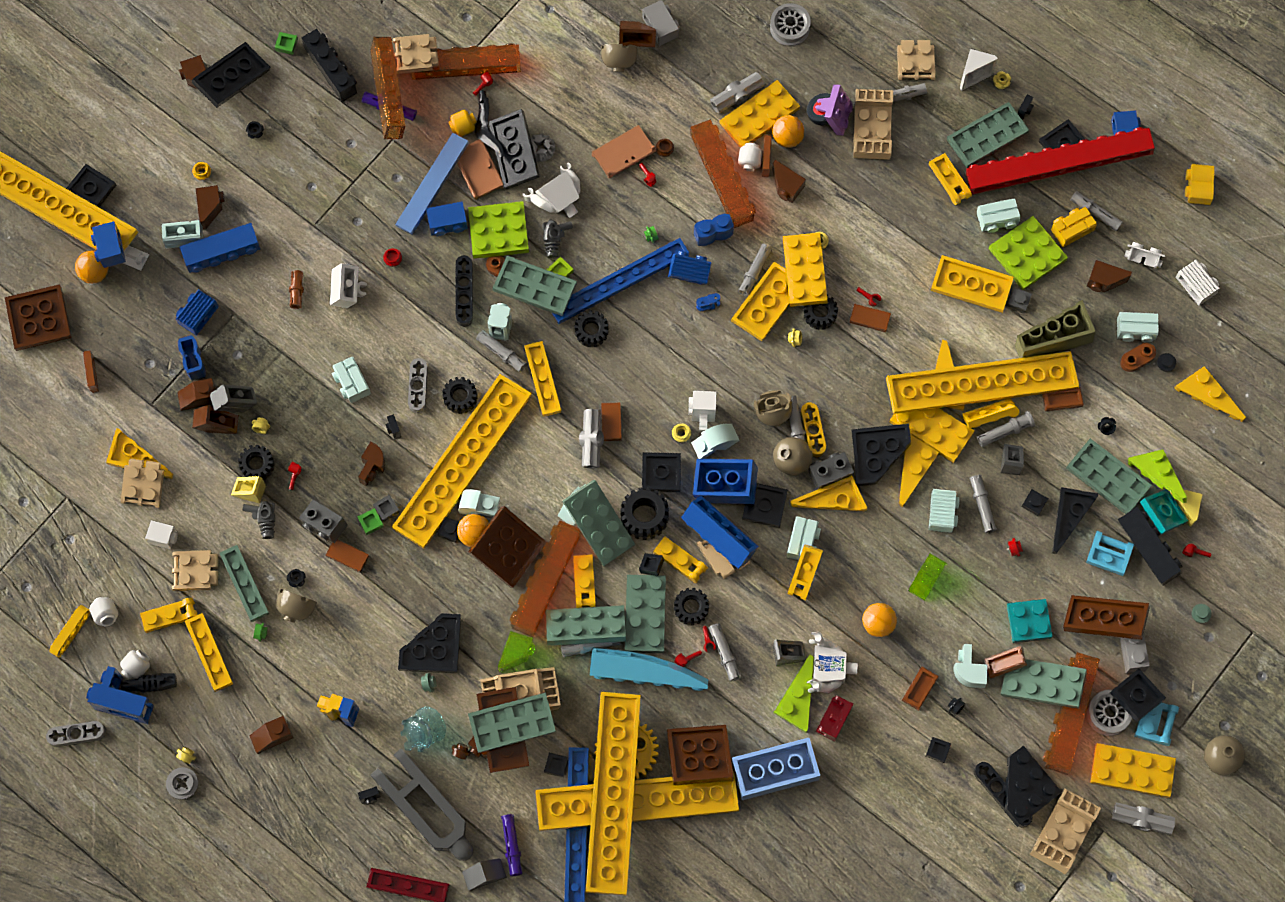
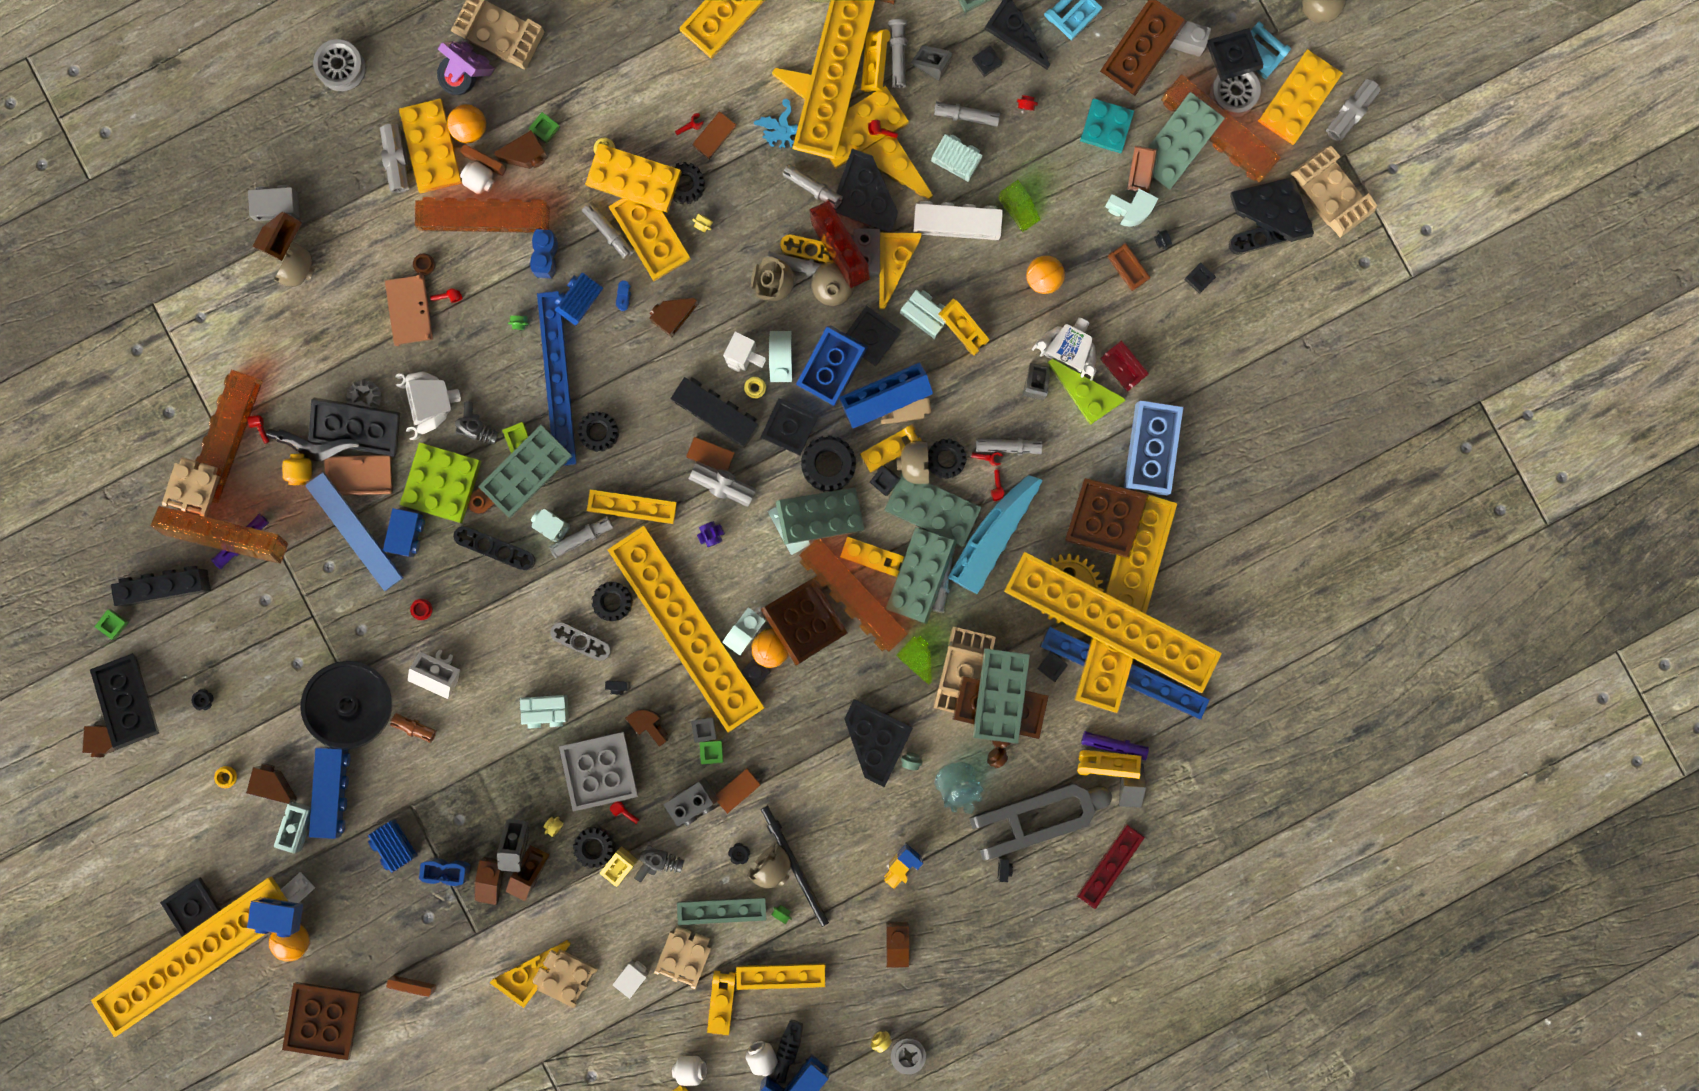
camera: 75 degrees left, 15 degrees up
(294, 232) = (346, 705): none -> black dish
(319, 441) = (598, 771): none -> light grey plate
(329, 597) = (775, 828): none -> black bar
(493, 845) = (1109, 764): none -> yellow plate
(546, 447) = (710, 534): none -> dark purple gear
(646, 410) = (715, 412): none -> black brick
(675, 579) = (914, 462): none -> dark tan cylinder
(710, 345) = (672, 314): none -> reddish brown slope
(813, 189) = (544, 127): none -> bright green plate
(824, 444) = (839, 244): none -> clear red brick
(863, 413) = (819, 190): none -> light grey pin
(891, 533) = (958, 221): none -> white brick
(902, 366) = (783, 131): none -> dark azure piece
(934, 435) = (875, 129): none -> red hand

